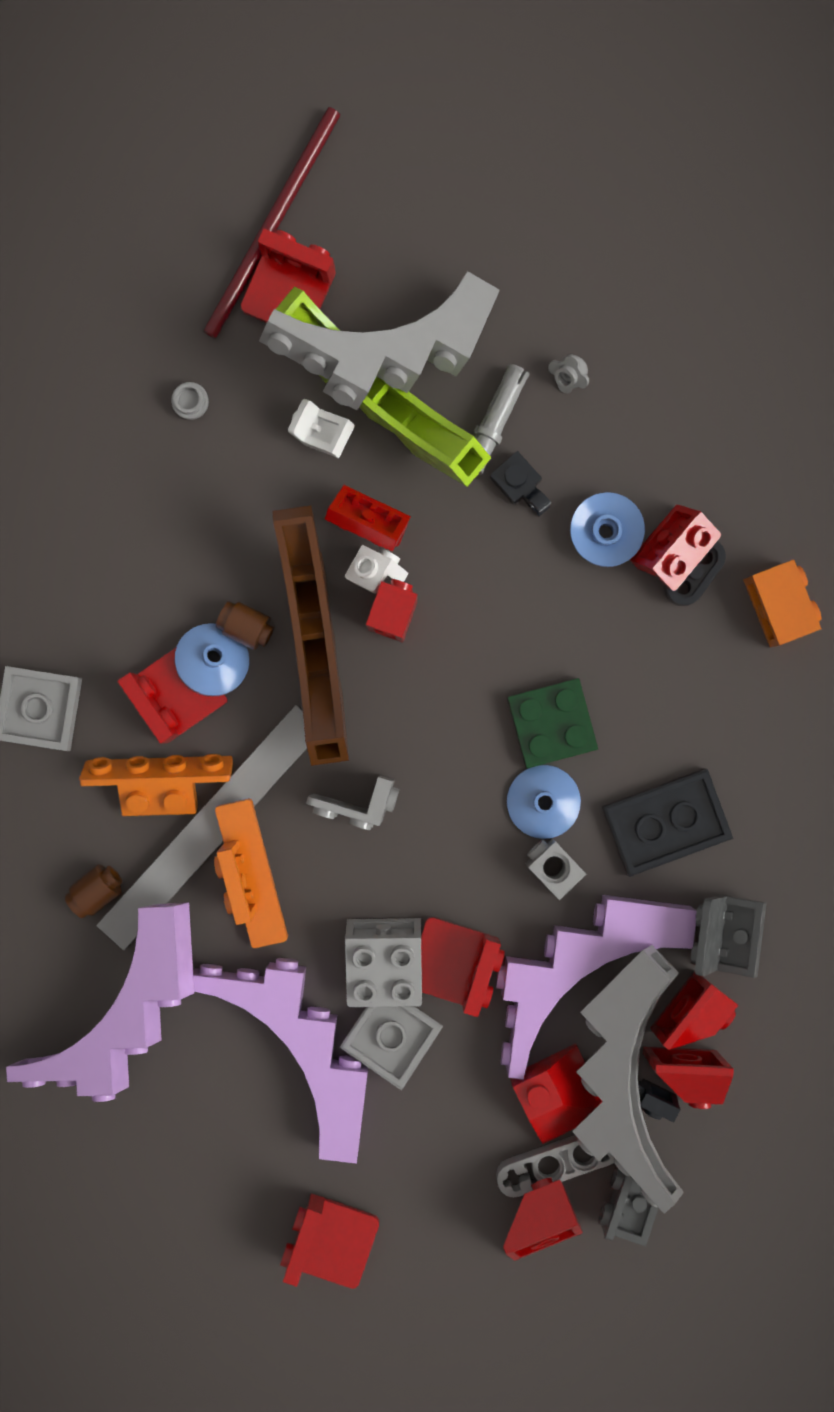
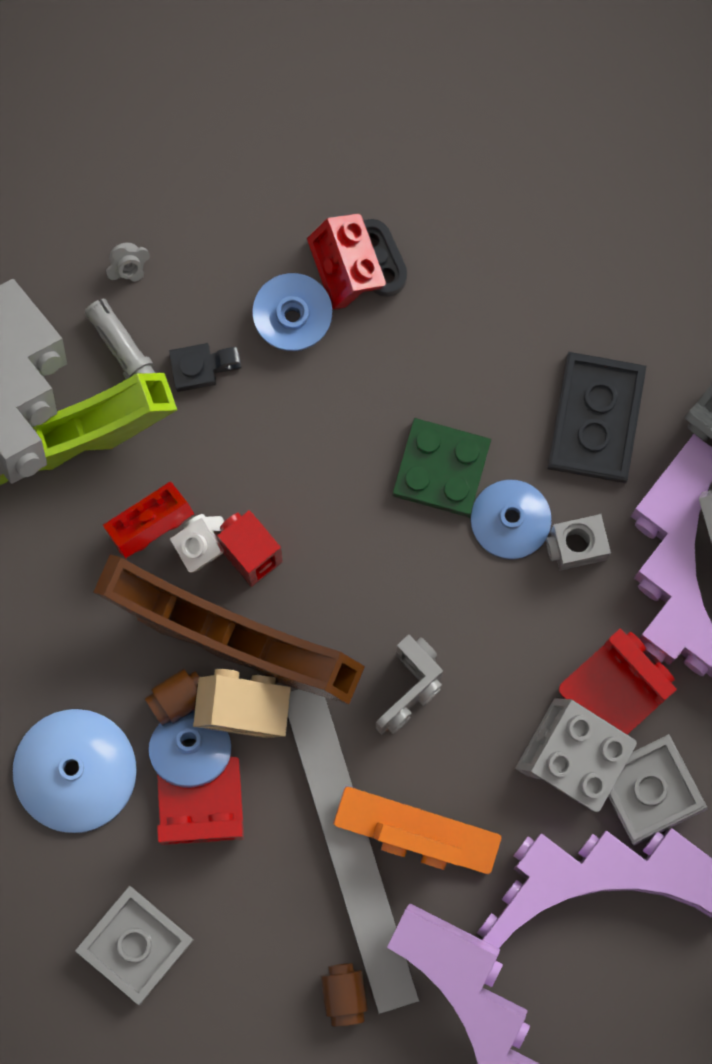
camera: 65 degrees left, 10 degrees down
(157, 784) = (277, 872): orange bracket -> none
(169, 585) = (95, 791): none -> light blue dish
(264, 681) = (242, 705): none -> tan brick
(320, 429) = (37, 517): white bracket -> none
(783, 603) = (455, 196): orange brick -> none

